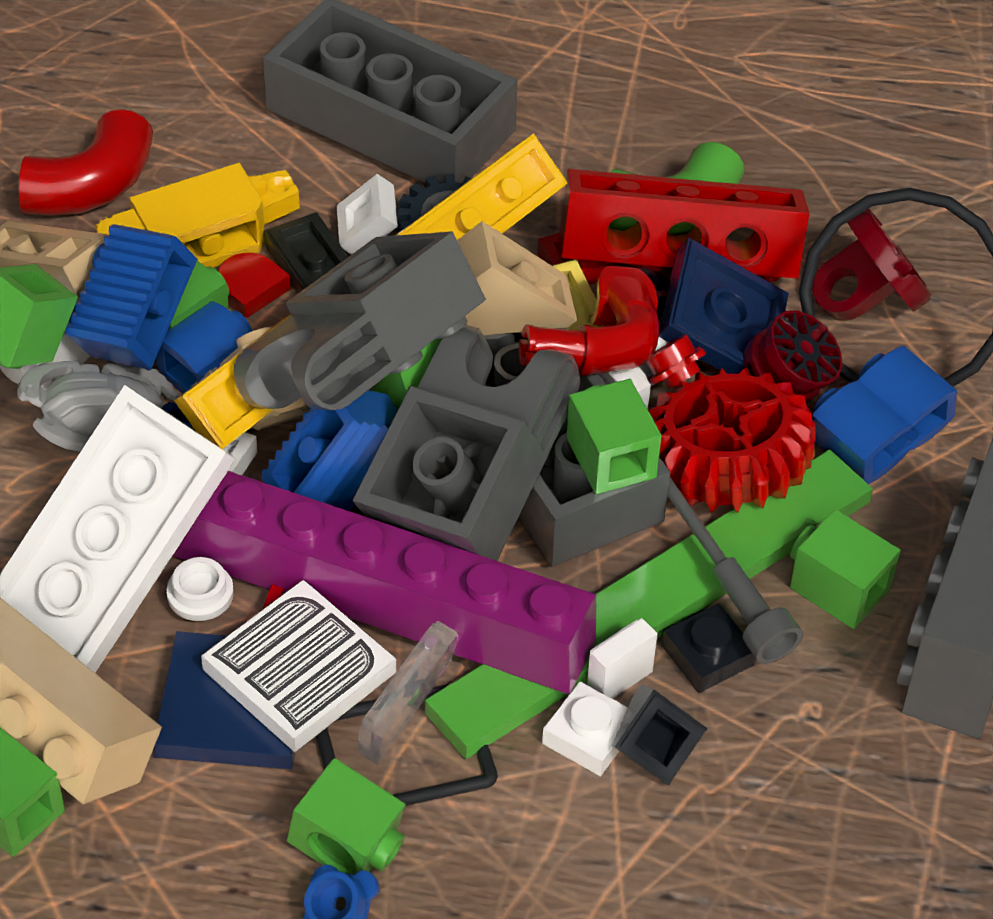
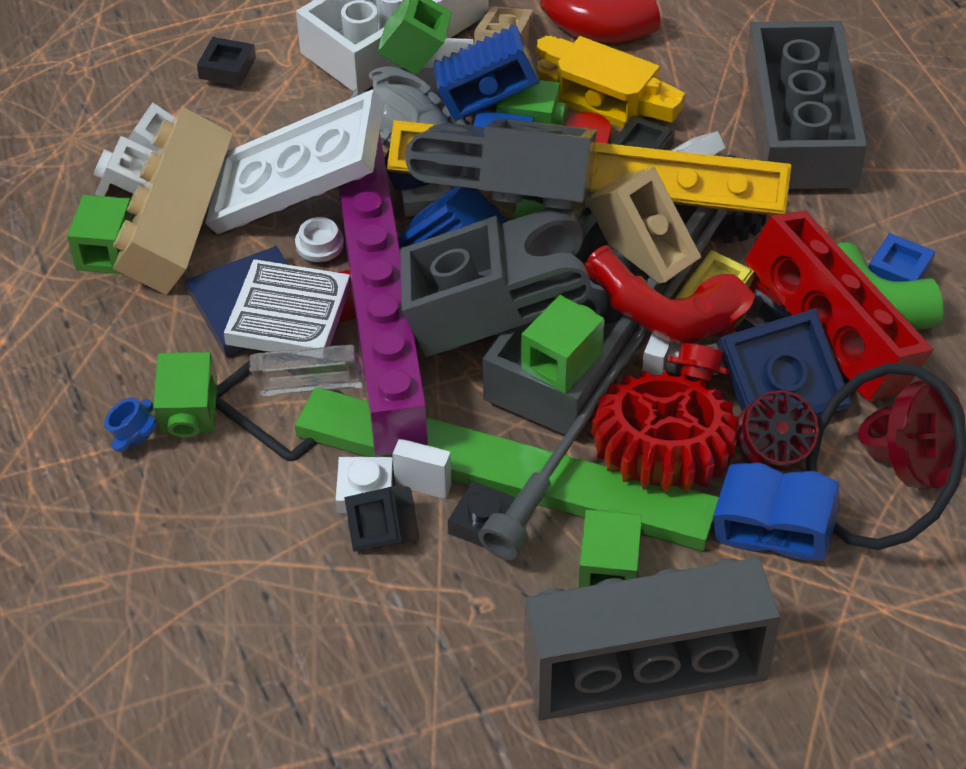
camera: 60 degrees right, 0 degrees up
(646, 153) = (901, 260): none -> blue plate

